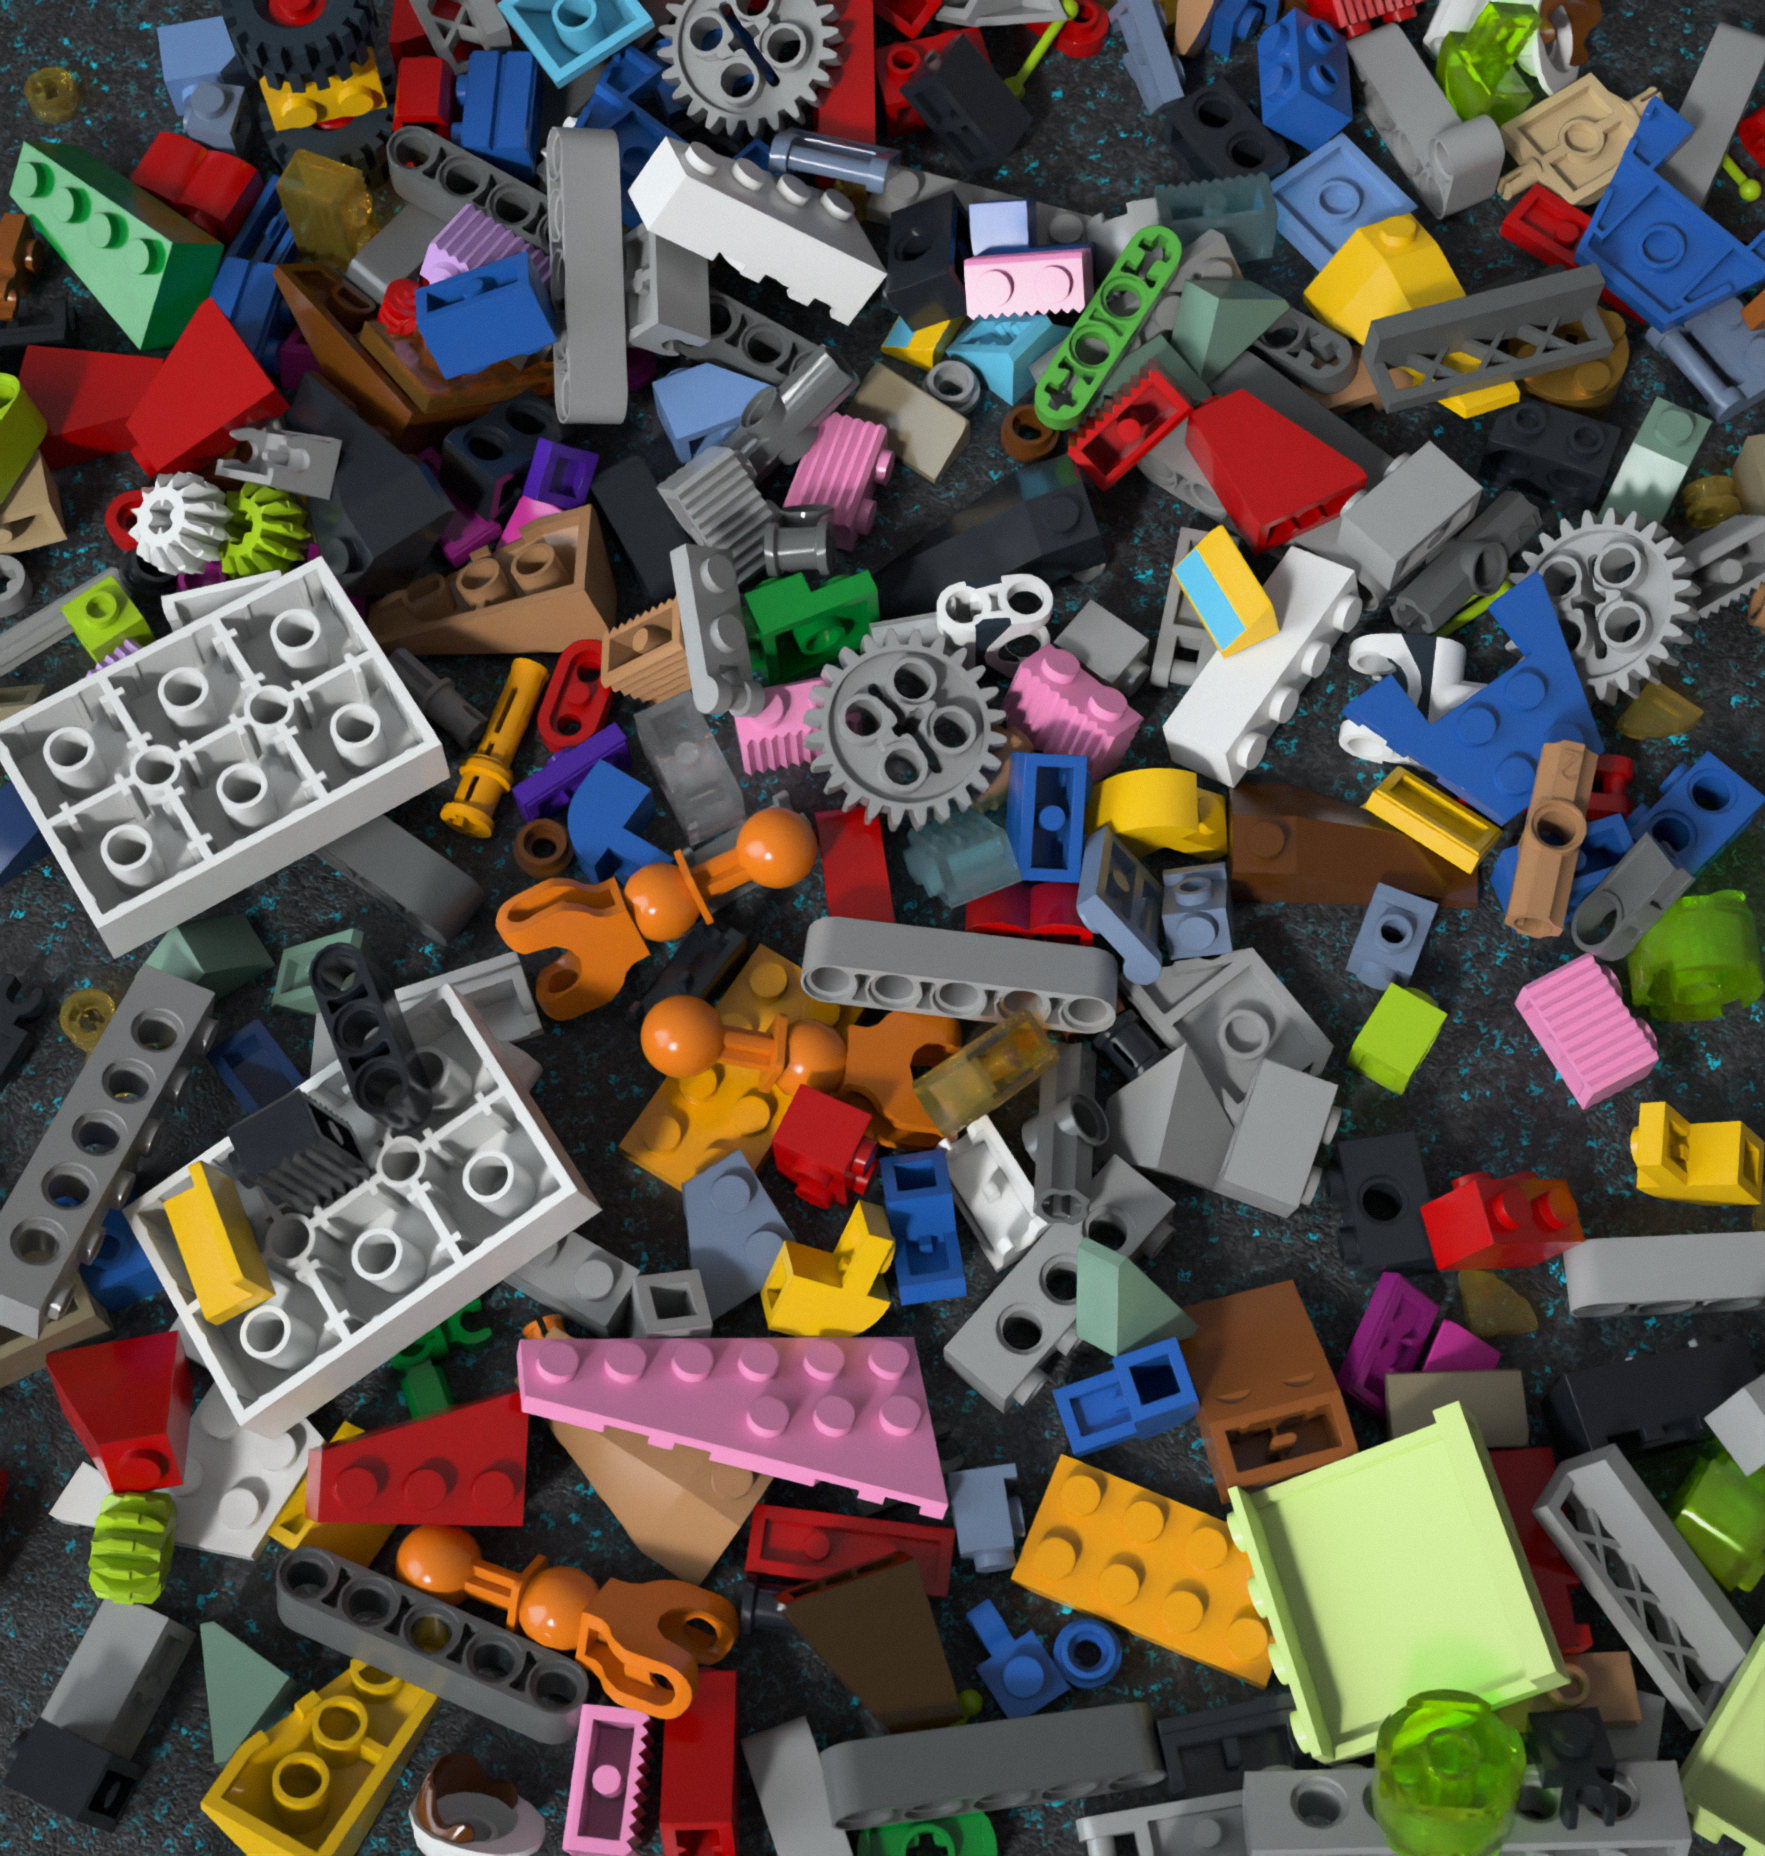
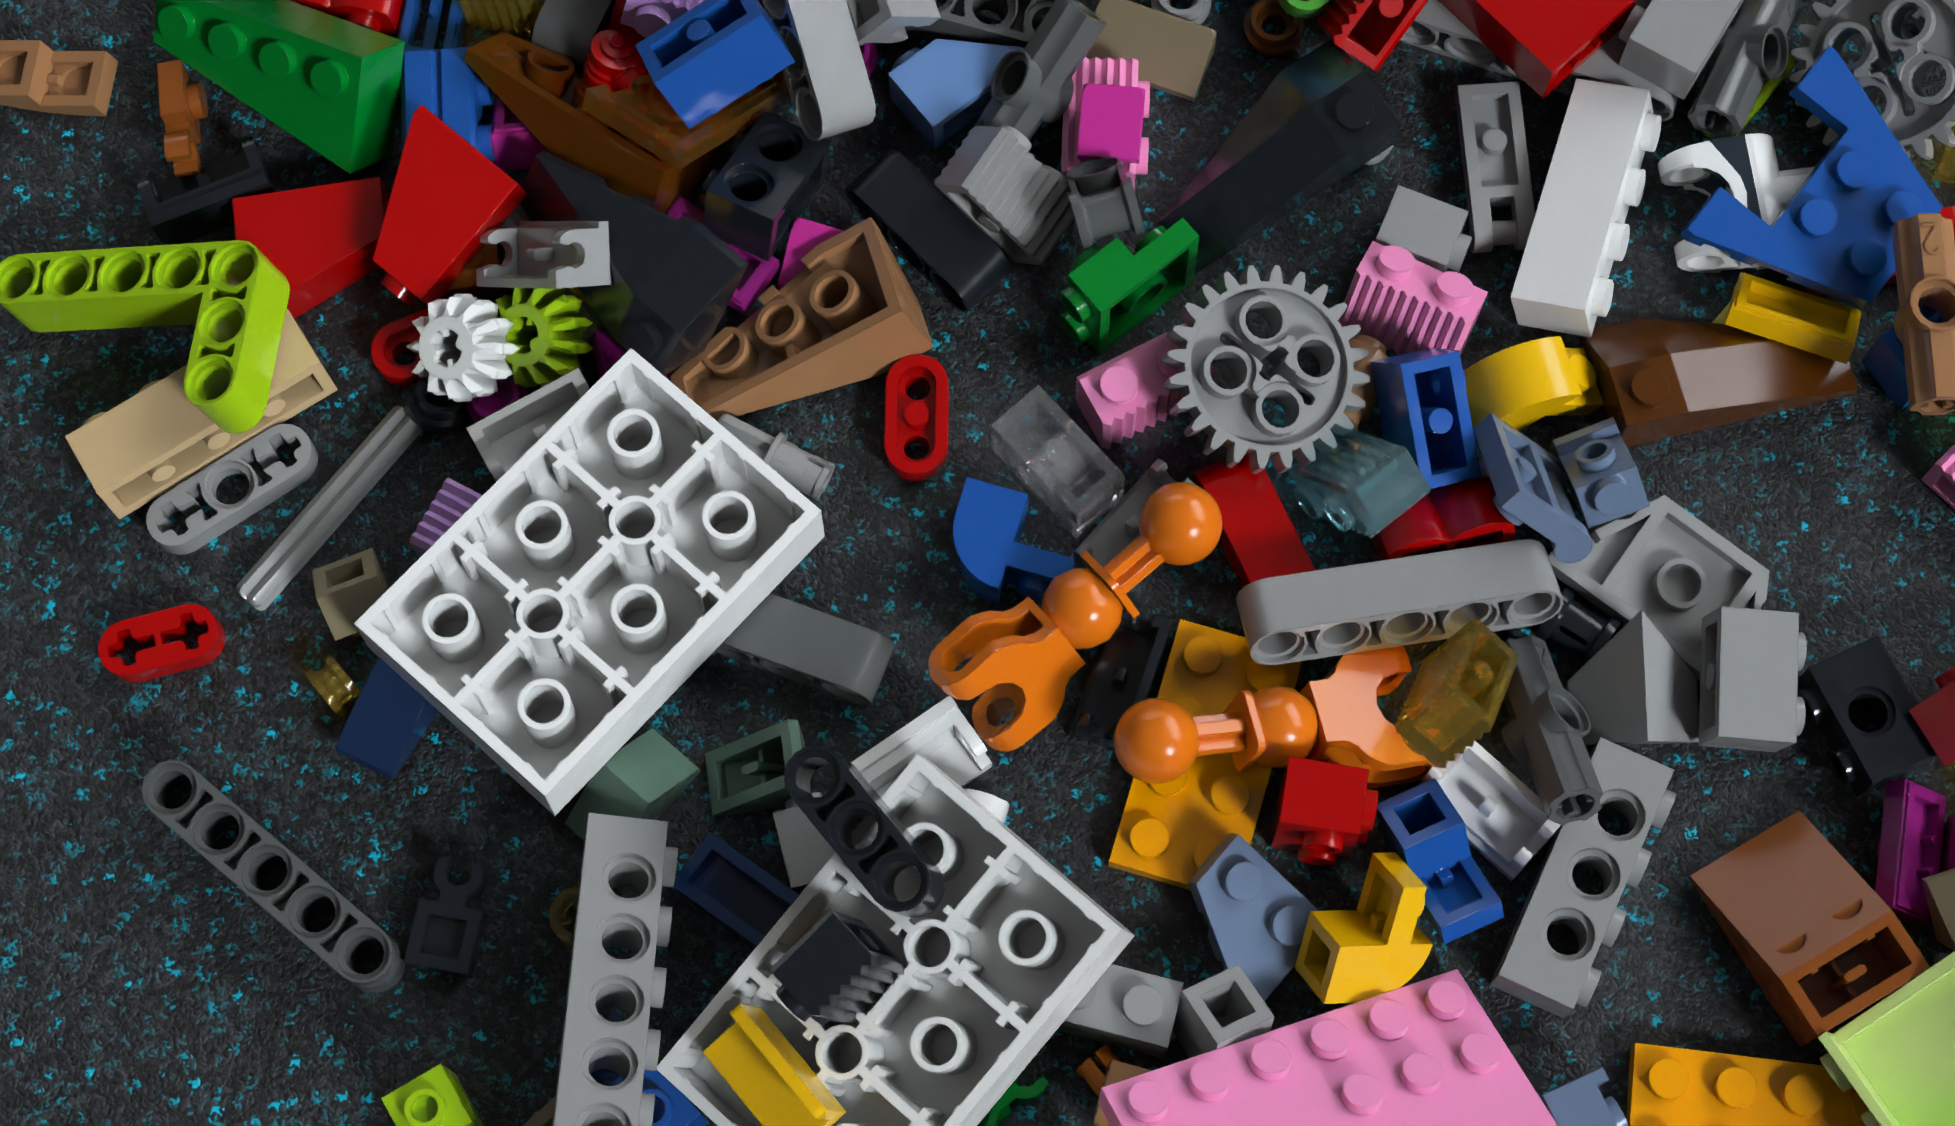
camera: 15 degrees left, 5 degrees up
(76, 1006) = (549, 863): clear yellow bush -> none
(105, 618) = (415, 468): lime brick -> none
(488, 771) = (851, 517): light orange pin -> none
(537, 834) = (932, 562): reddish brown plate -> none
(554, 786) = (937, 499): dark purple plate -> none
(560, 474) = (830, 194): dark purple plate -> none
(647, 656) = (1000, 348): medium nougat brick -> none
(715, 632) = (1053, 322): light grey plate -> none
(838, 473) = (1111, 122): none -> dark pink slope
(979, 619) = (1298, 238): white connector -> none
(1120, 1305) = (1659, 887): sand green slope -> none
(1138, 1398) = (1688, 973): blue brick -> none
(1225, 594) = (1531, 145): yellow slope -> none
(1397, 1037) = (1826, 545): lime brick -> none
(1398, 917) = (1791, 424): sand blue brick -> none

